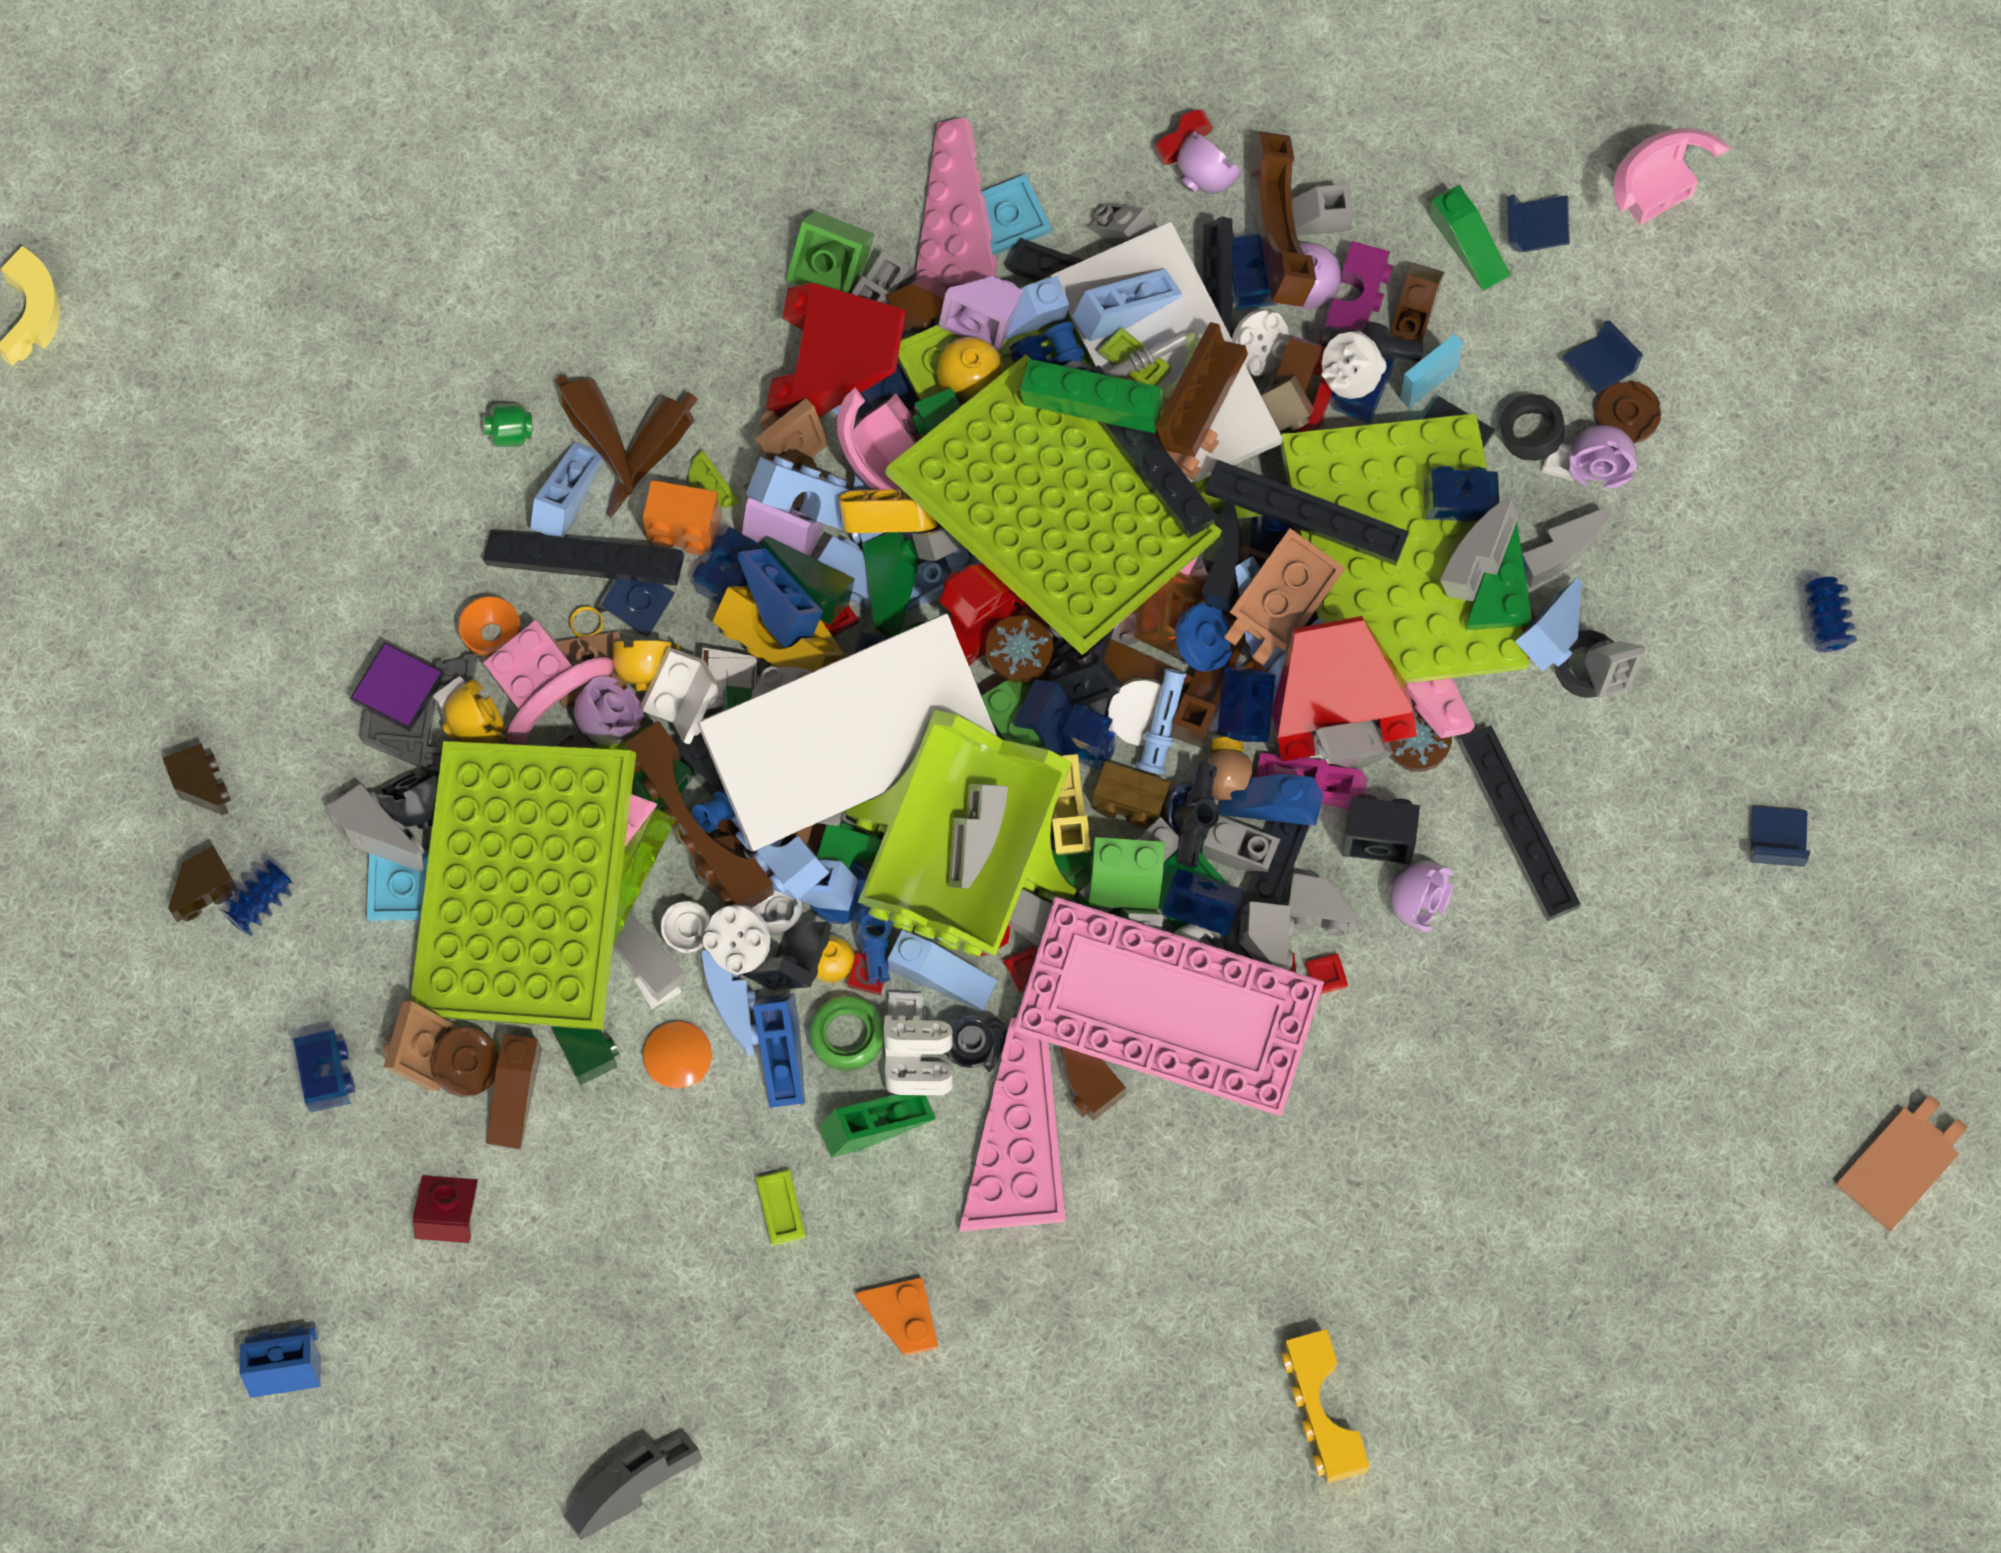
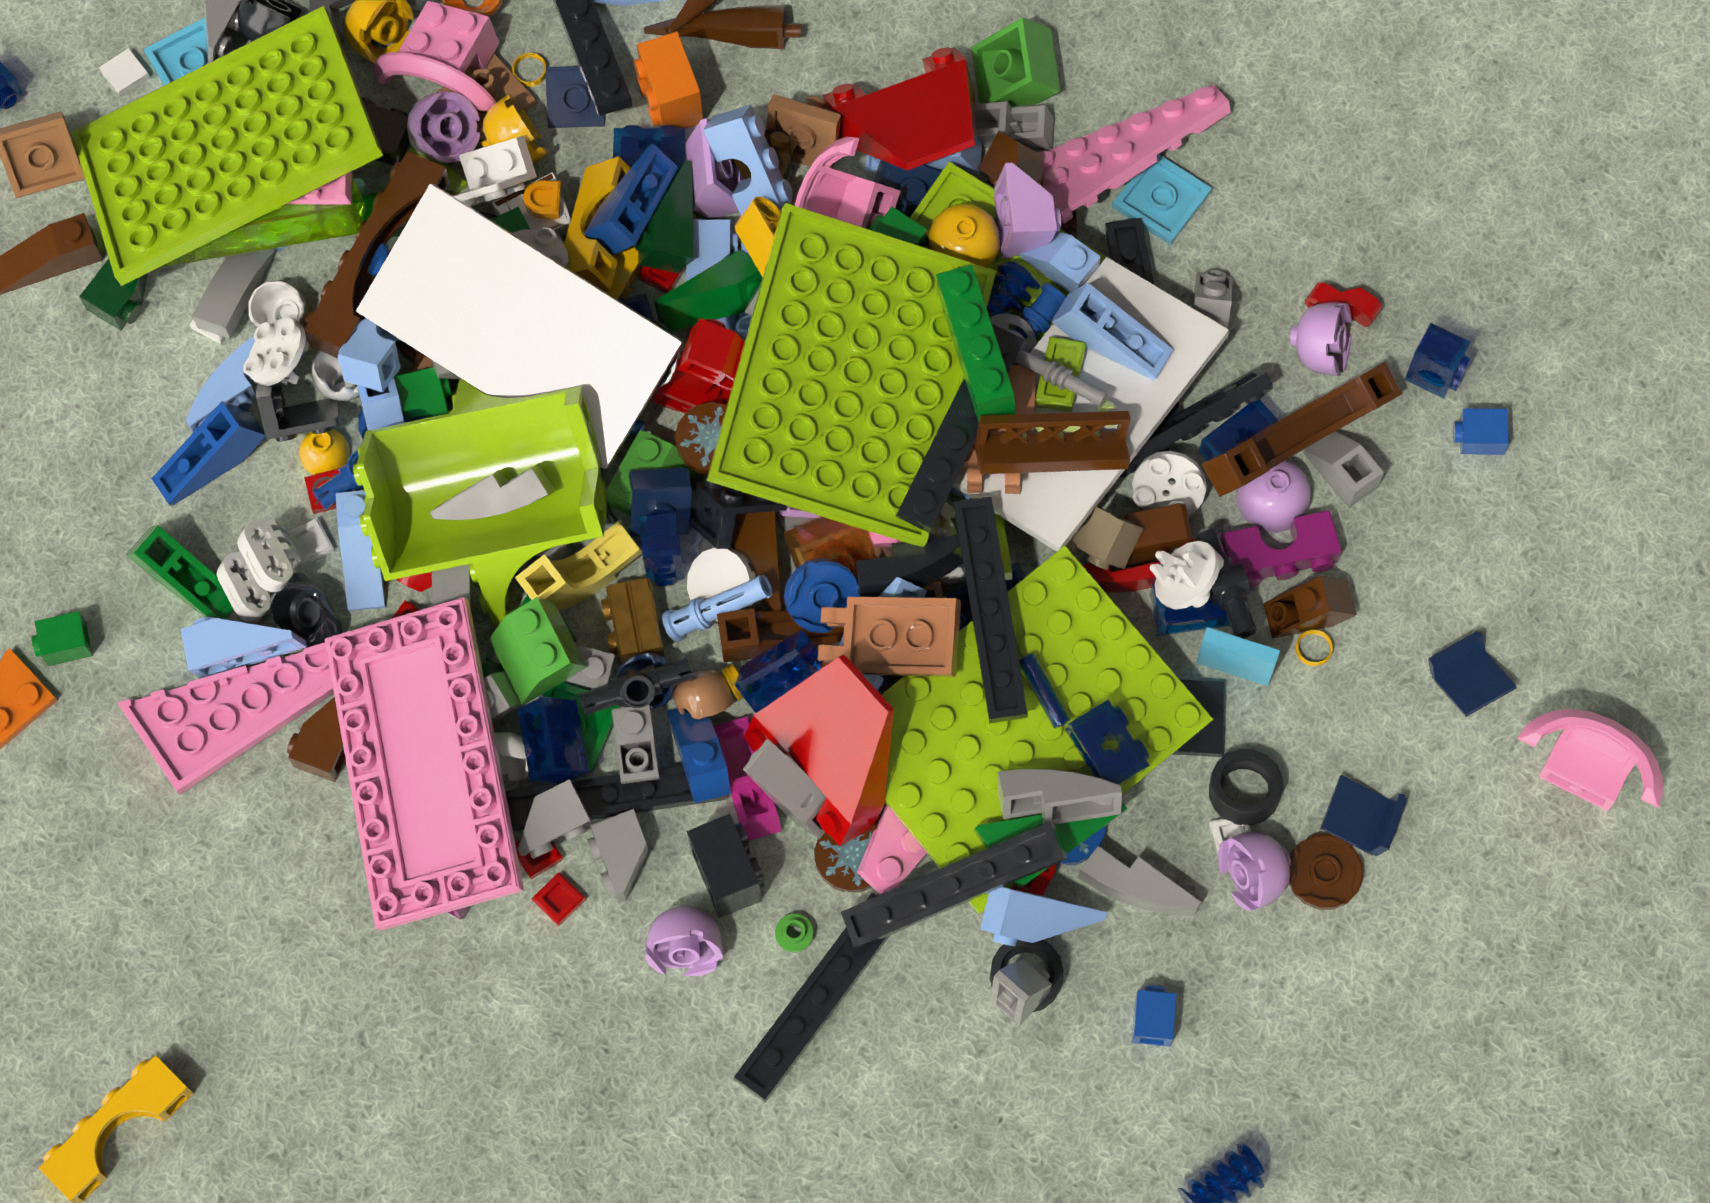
camera: 60 degrees right, 0 degrees up
(377, 944) = (124, 72): none -> white tile
(464, 1062) = (47, 197): reddish brown tile -> none
(677, 1055) = (157, 373): orange dish -> none
(706, 476) = (728, 90): lime tile -> none
(726, 666) = (543, 199): none -> light orange tile
(780, 1207) = (59, 540): lime tile -> none
(846, 1006) = (248, 476): bright green wheel -> none
(875, 1245) = (62, 639): none -> green brick
(963, 1113) = (223, 644): none -> light blue slope
(1278, 95) = (1439, 361): none -> clear blue brick
(1350, 101) = (1482, 431): none -> blue brick
(1393, 514) = (1044, 690): none -> piece
(1447, 332) = (1321, 633): none -> yellow axle
(1455, 823) = (794, 944): none -> bright green plate
(1468, 237) = (1410, 620): green slope -> none
(1503, 666) = (954, 885): none -> black plate
(1674, 591) = (1154, 1016): none -> blue brick

